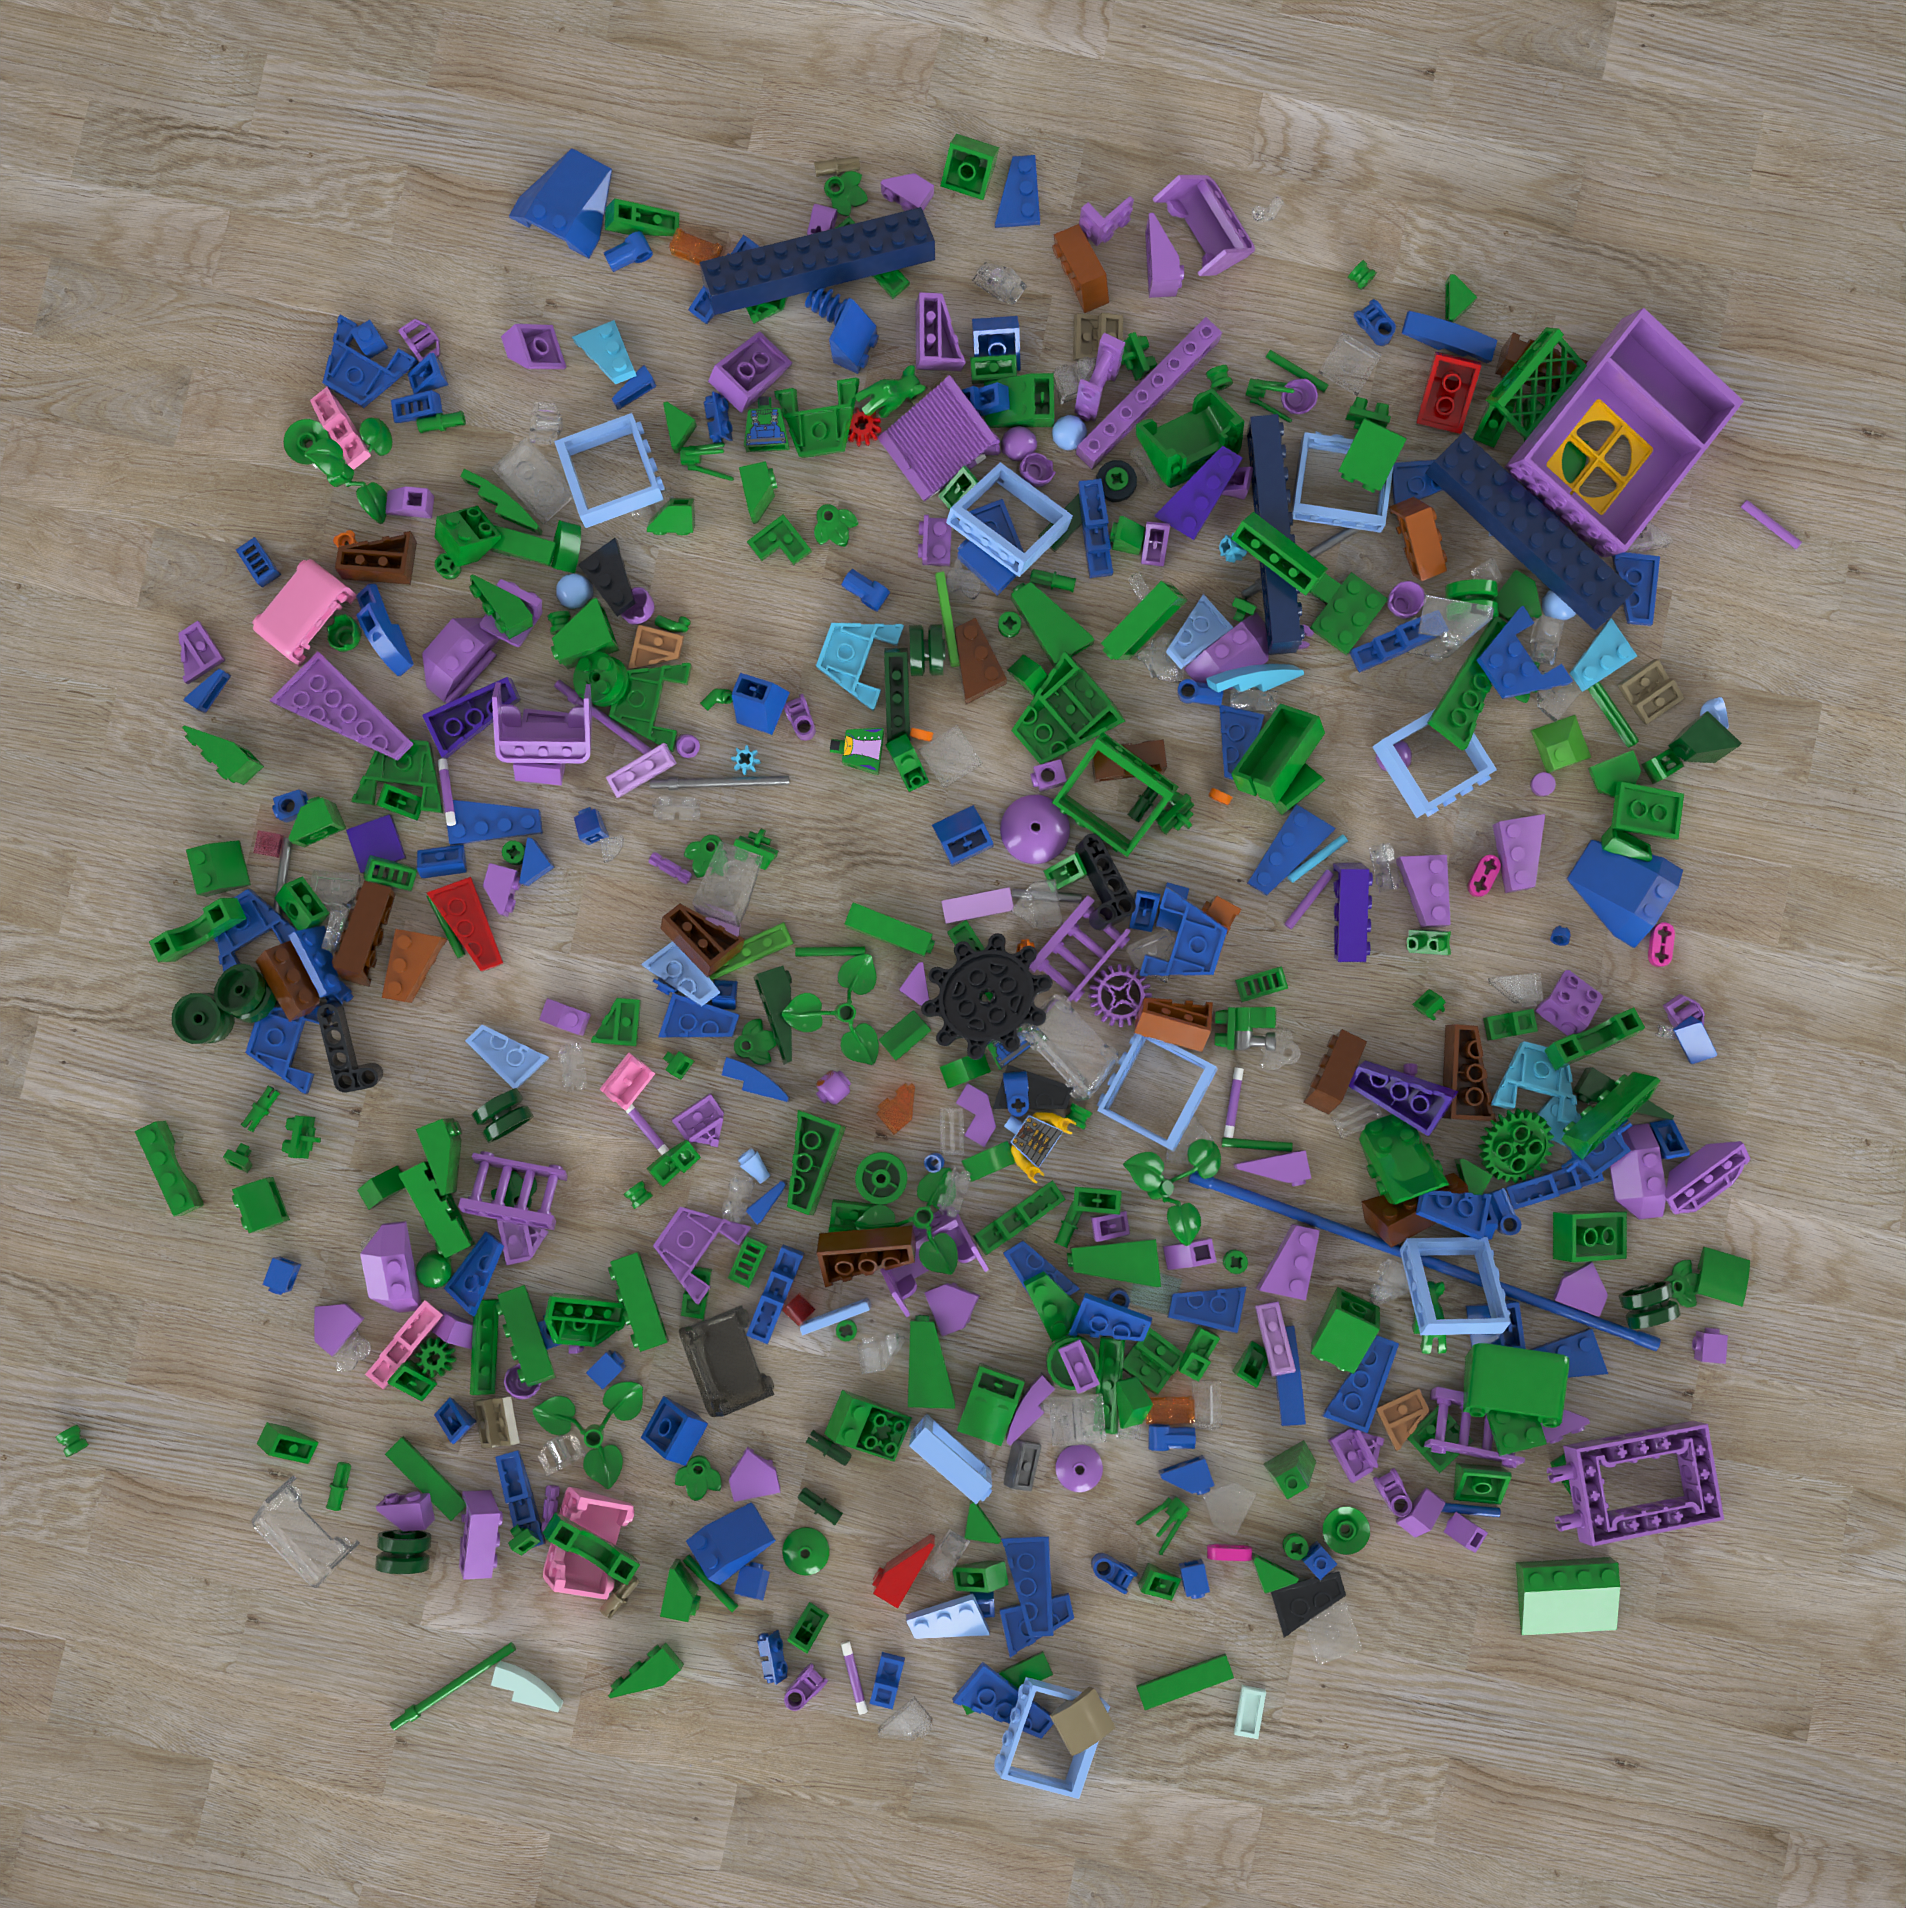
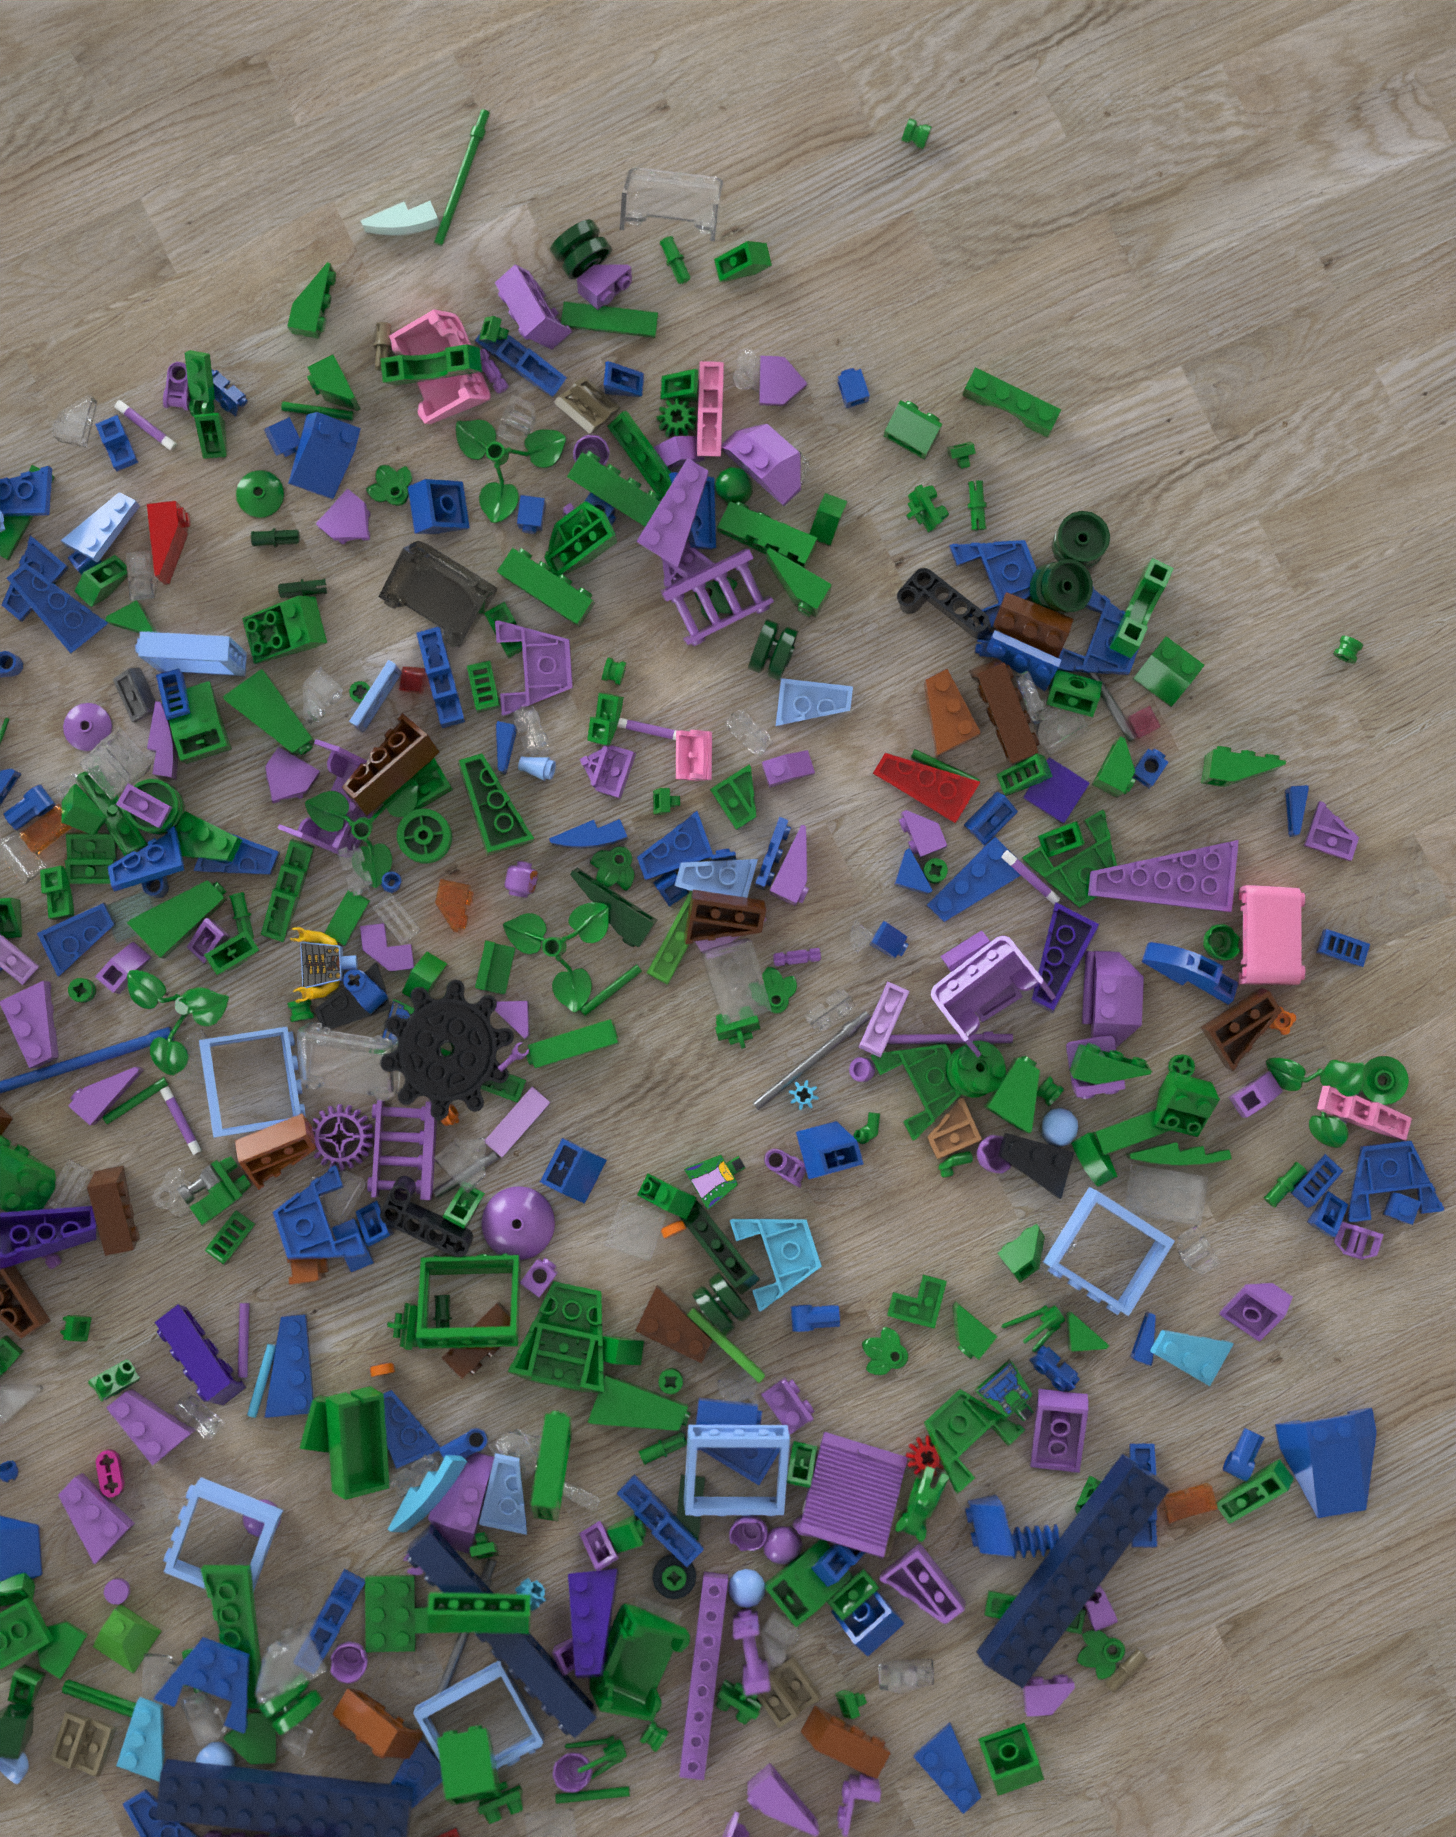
camera: 140 degrees right, 0 degrees up
(70, 780) = (1348, 649): none -> green wheel
(496, 1276) = (673, 519): none -> medium lavender wedge
(621, 931) = (793, 873): none -> medium lavender slope
(627, 959) = (773, 854): none -> blue wing
(783, 1677) = (200, 382): none -> green hinge
(942, 954) = (515, 1055): none -> medium lavender hand
(987, 1457) = (168, 678): none -> blue slope
(1056, 293) = (849, 1703): none -> green tile

